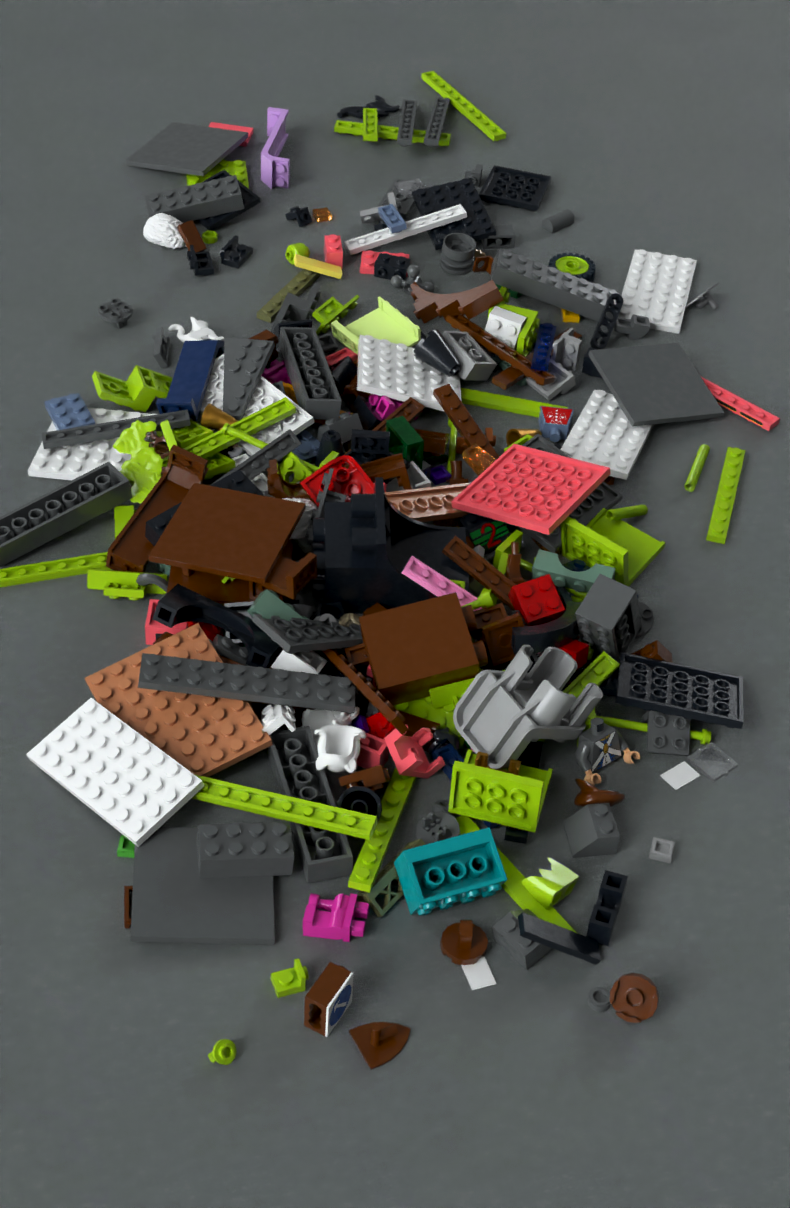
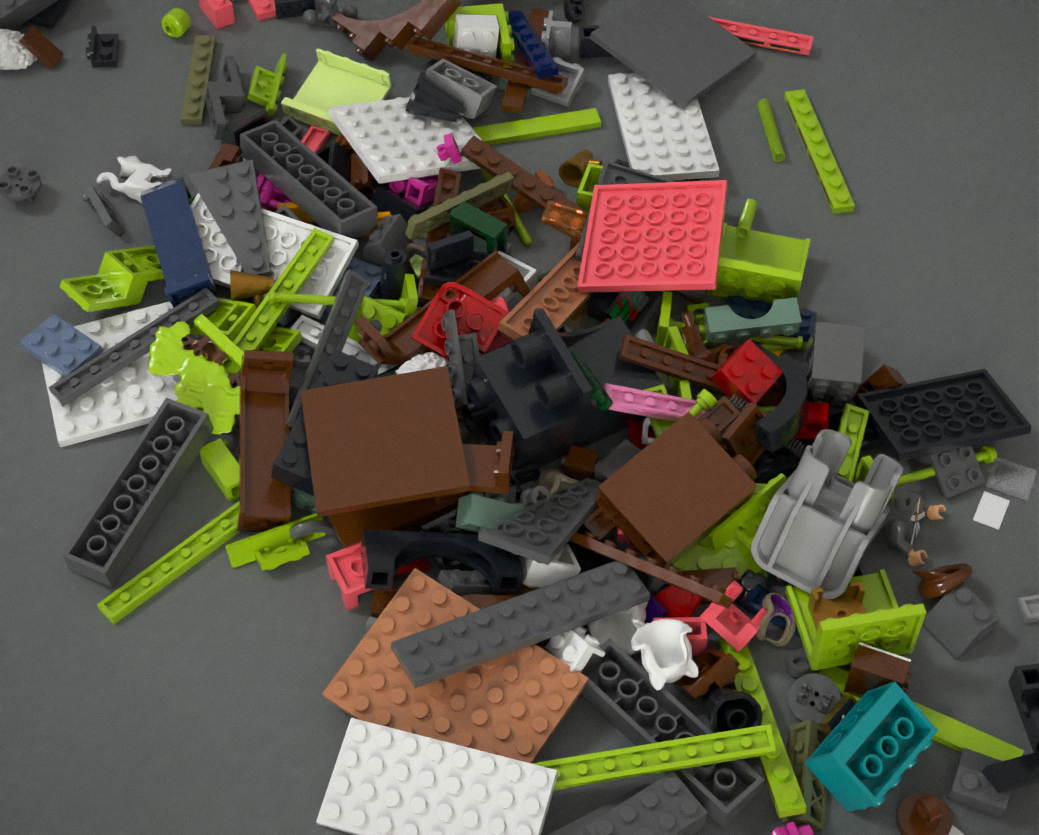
camera: 25 degrees left, 10 degrees up
(200, 262) = (71, 76): black bracket -> none
(209, 237) = (57, 36): lime tile -> none
(318, 266) = (212, 31): light yellow tile -> none
(401, 550) = (598, 393): none -> dark green plate
(420, 422) = (478, 196): none -> olive plate
(424, 386) = (449, 149): none -> dark pink tile
(439, 475) = (520, 249): dark purple tile -> none
(447, 756) = (777, 605): none -> dark tan piece
(456, 473) = (544, 248): reddish brown bracket -> none
(502, 826) = (876, 668): none -> reddish brown piece
(553, 885) = (972, 707): lime piece -> none
(555, 422) = (596, 133): torso -> none

